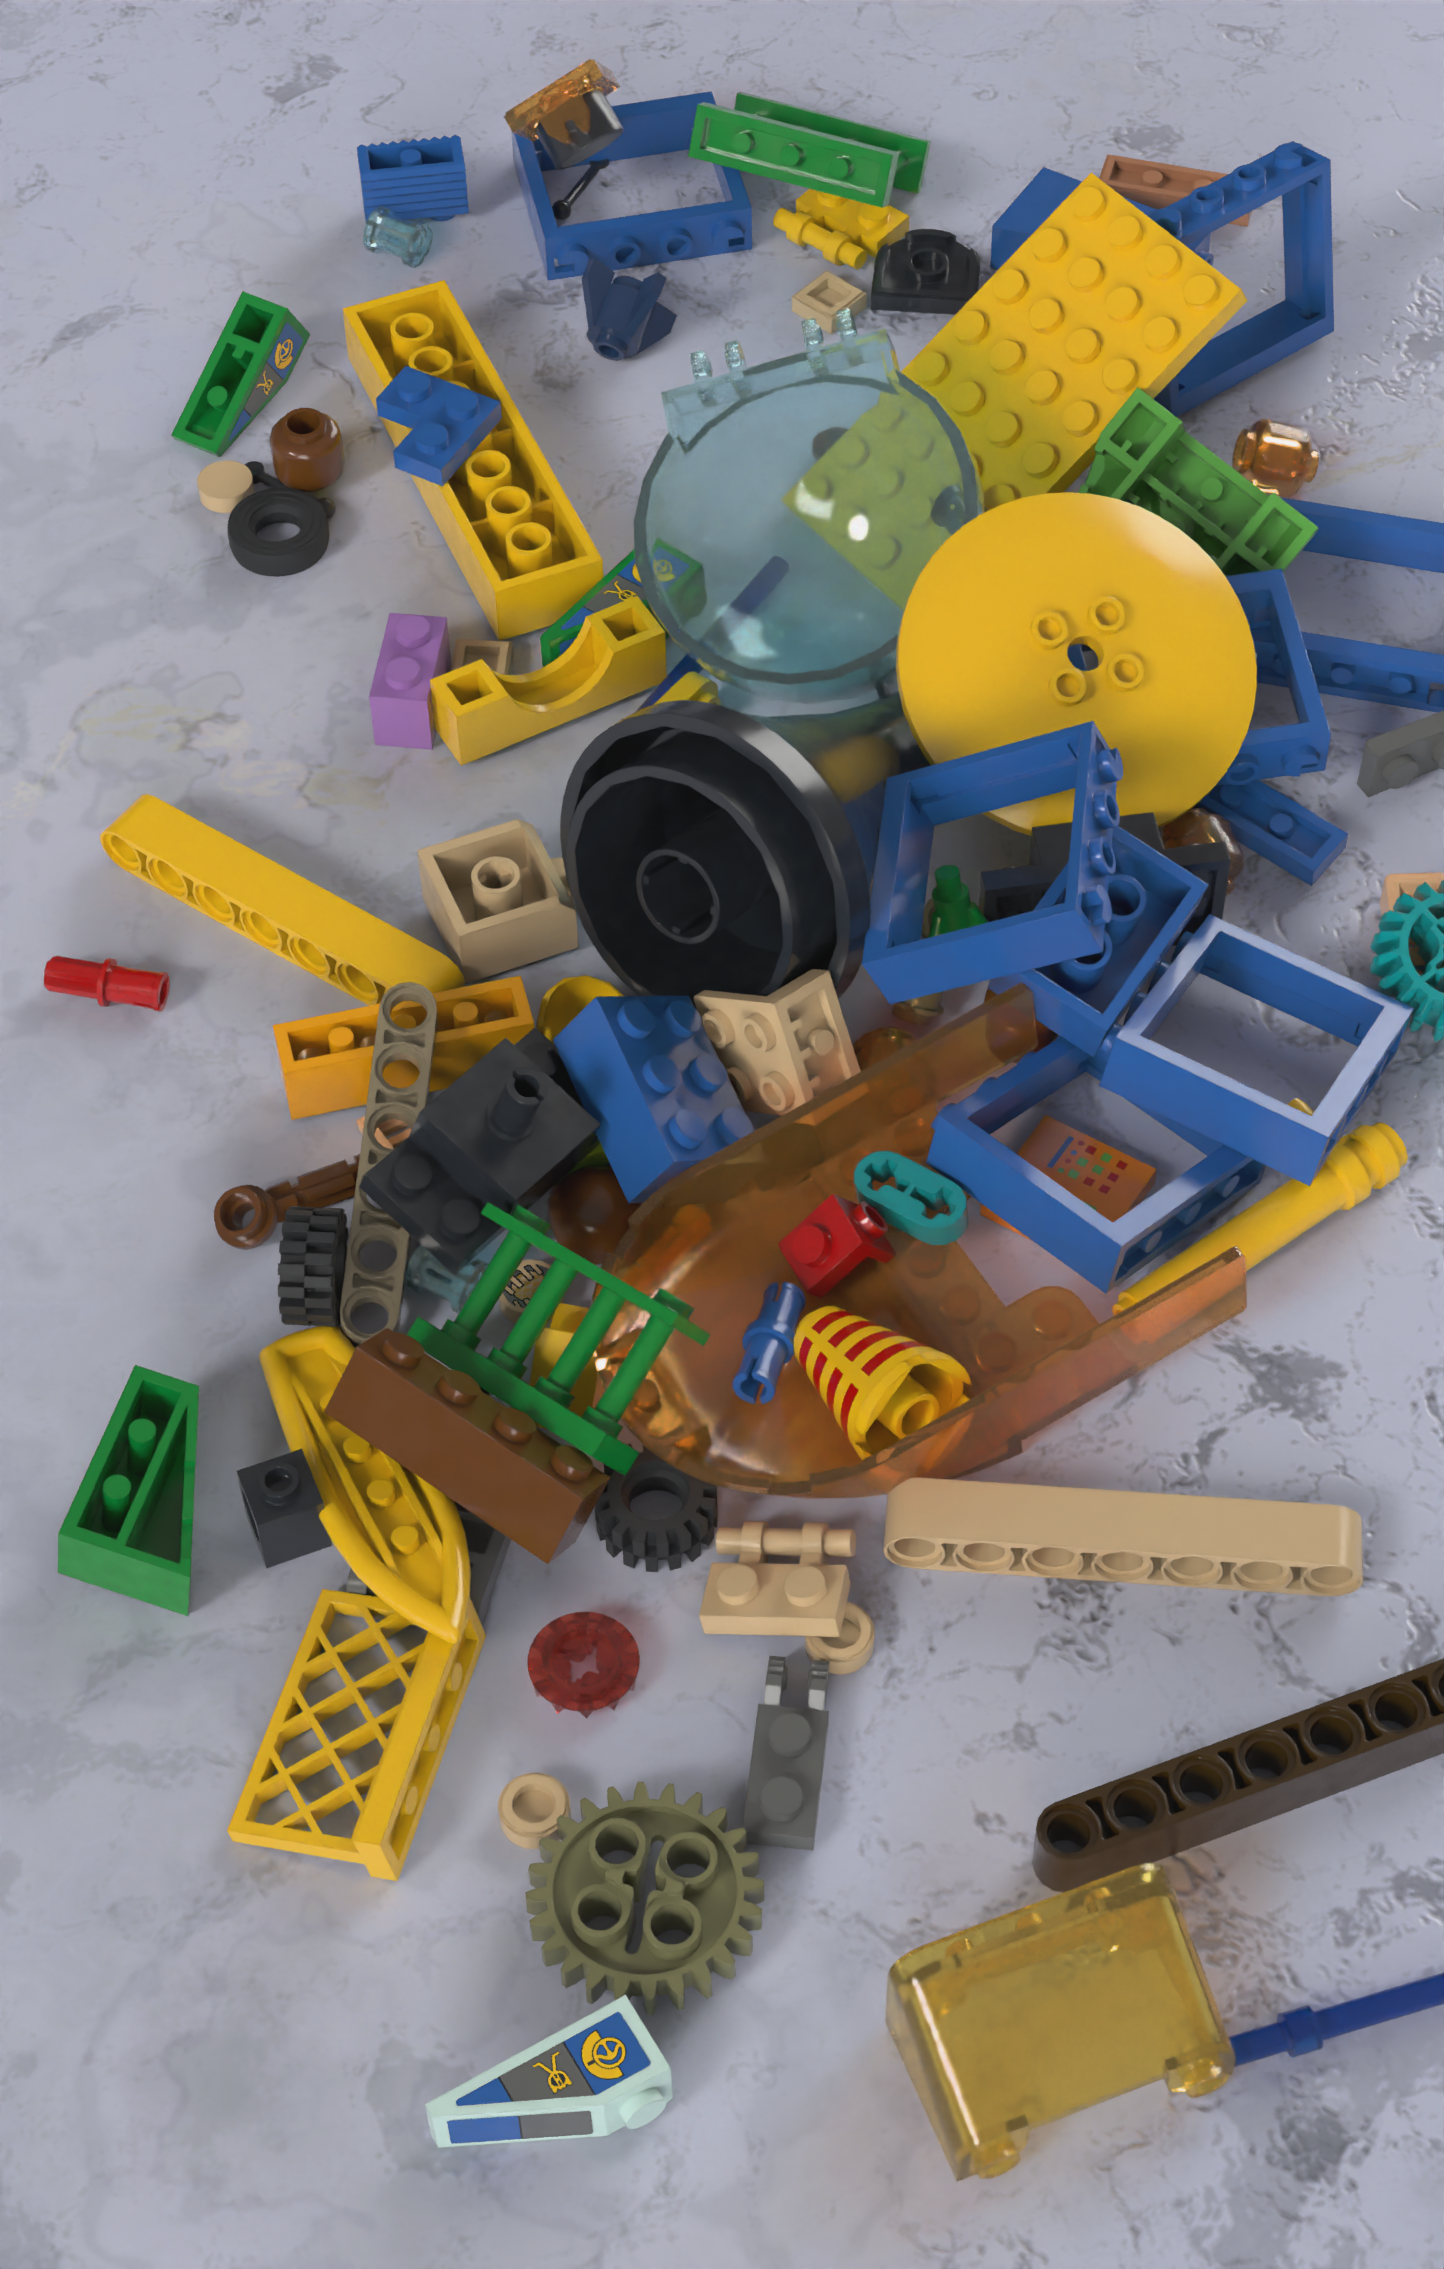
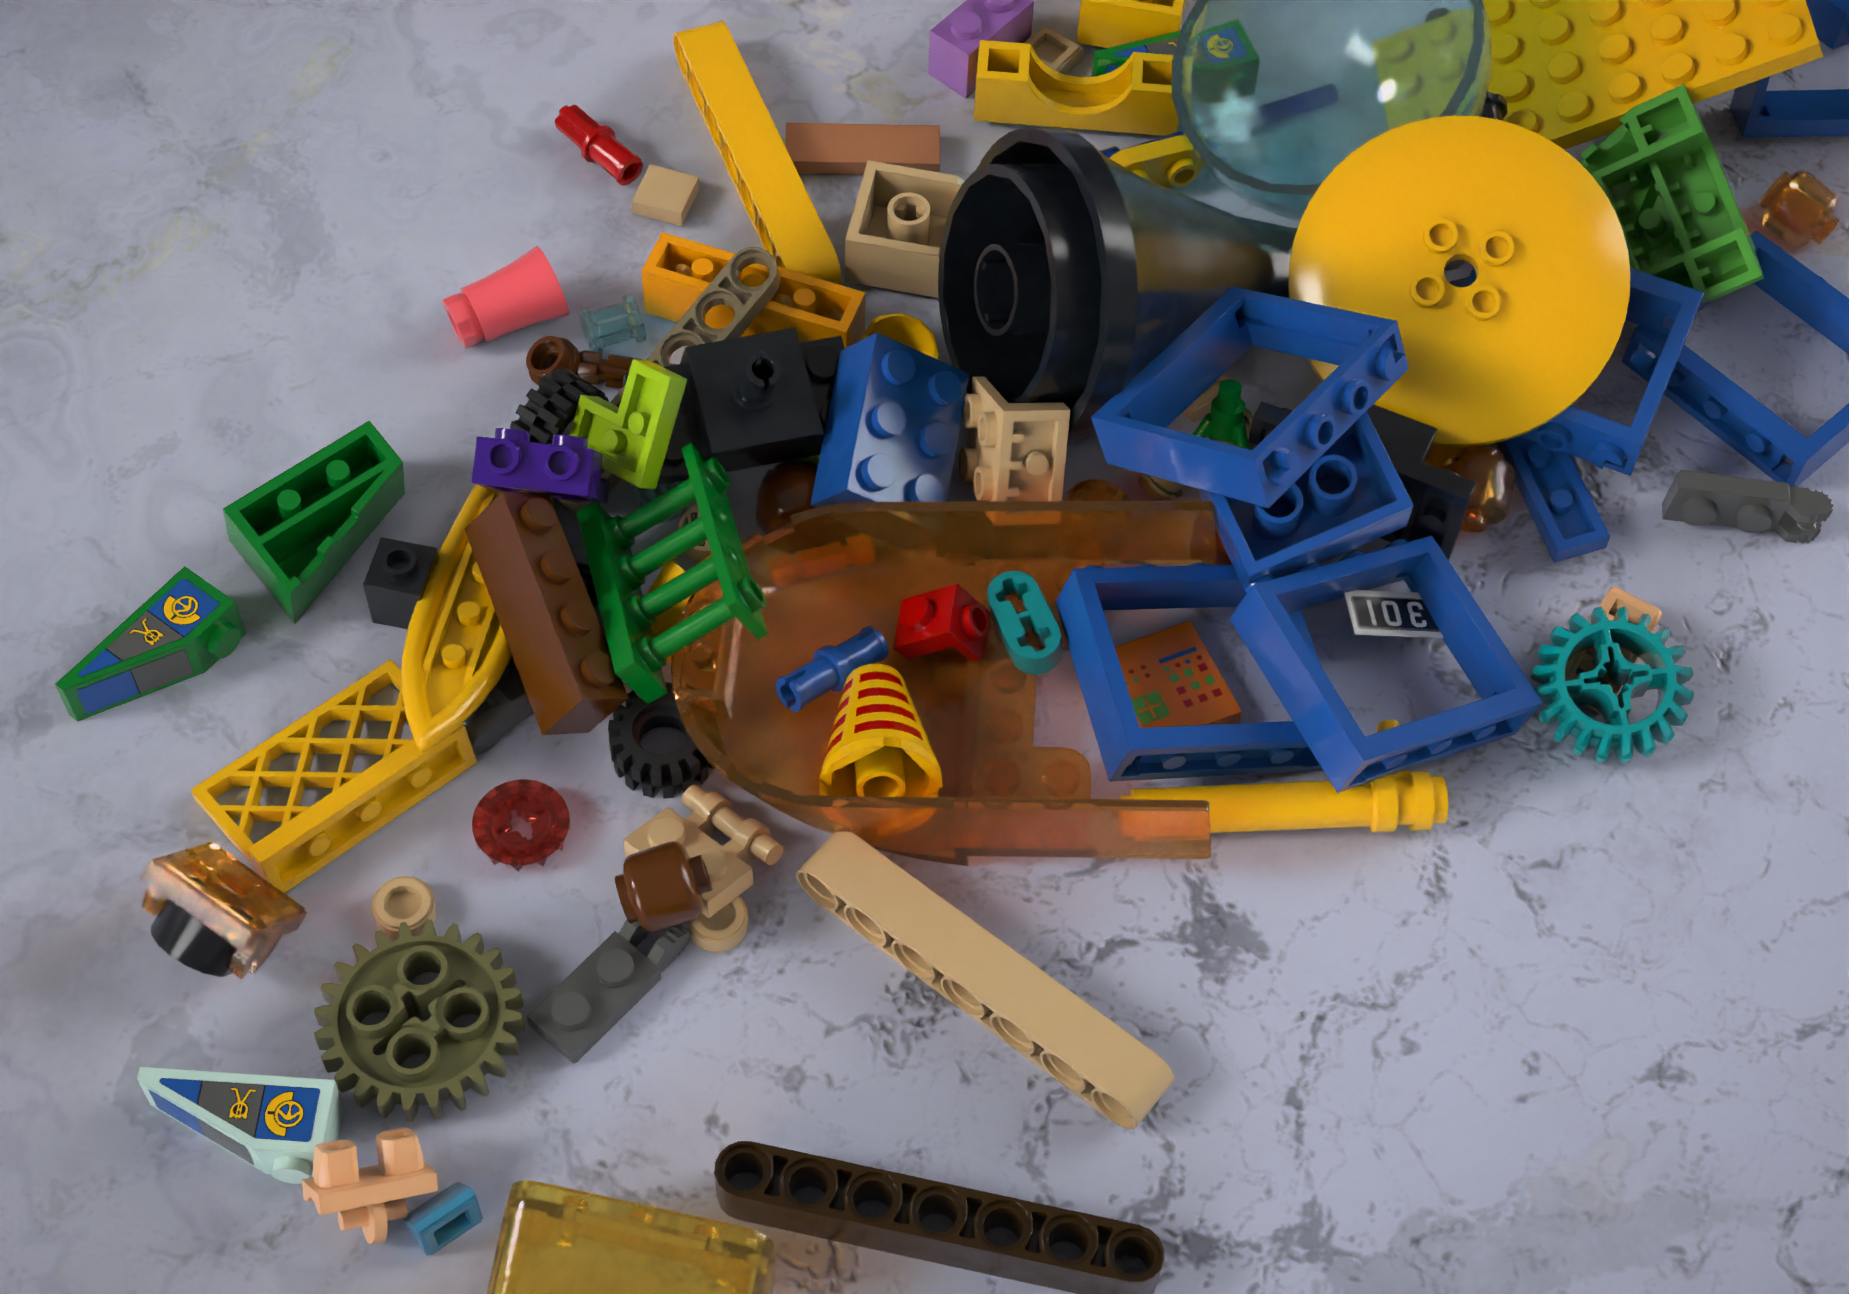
camera: 30 degrees right, 5 degrees up
(80, 1711) = (160, 644): none -> slope
(152, 1179) = (507, 300): none -> coral plant
(216, 996) = (665, 195): none -> tan tile
(275, 1147) = (612, 324): none -> clear light blue bush
(343, 1316) = (520, 466): none -> dark purple plate
(374, 1919) = (210, 924): none -> clear orange piece
(380, 845) = (848, 147): none -> nougat tile
(426, 1231) = (637, 431): none -> lime plate
(738, 2078) = (372, 1193): none -> light nougat hips
(791, 1626) = (662, 886): none -> reddish brown head
(814, 2057) = (444, 1217): none -> dark azure slope
(1217, 1008) = (1390, 614): none -> sticker

